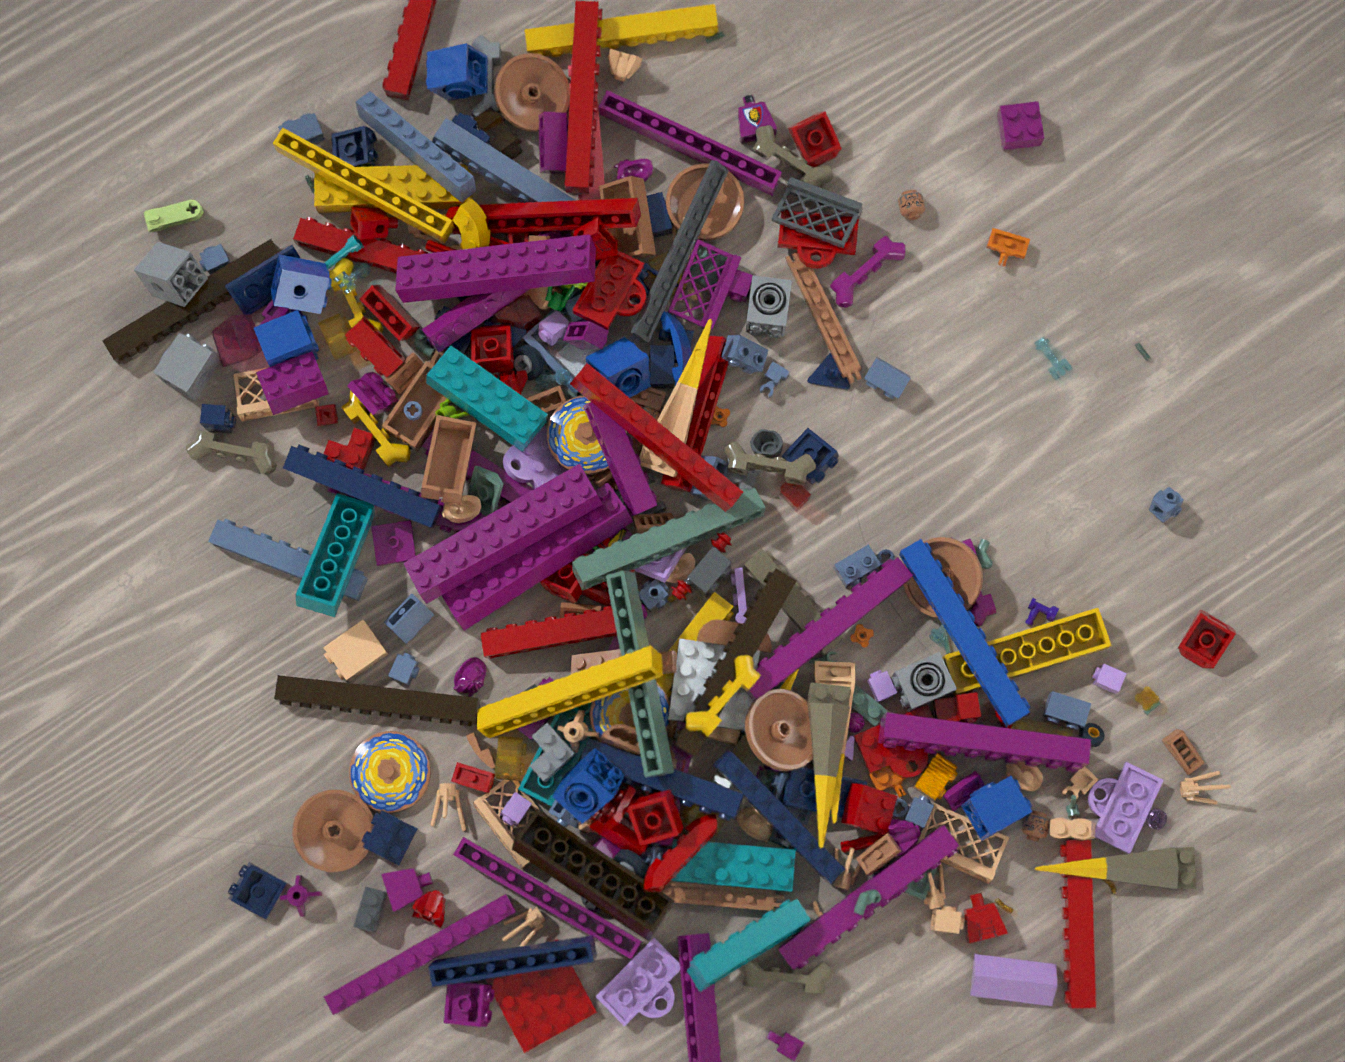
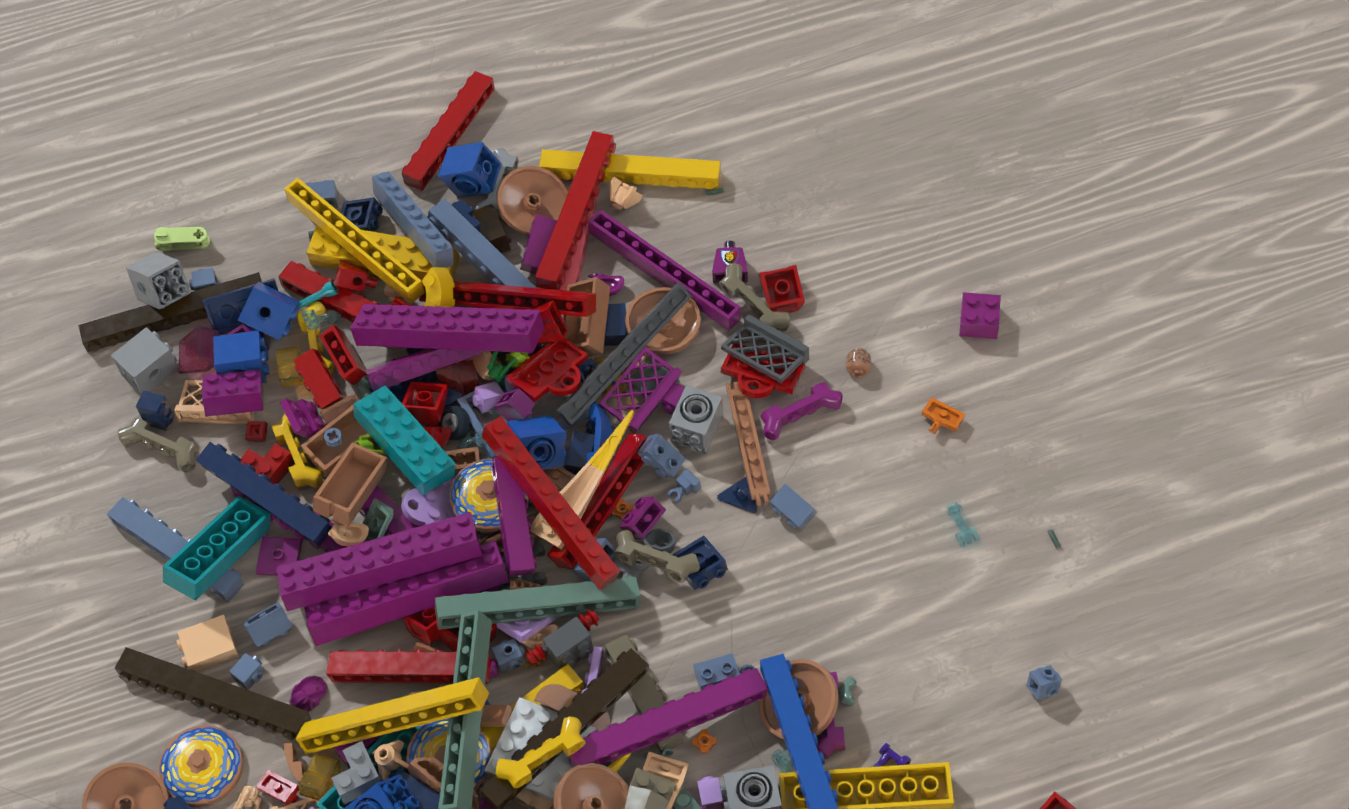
camera: 15 degrees right, 20 degrees down
(743, 423) = (642, 517): none -> magenta brick
(794, 495) = (674, 595): clear red brick -> none

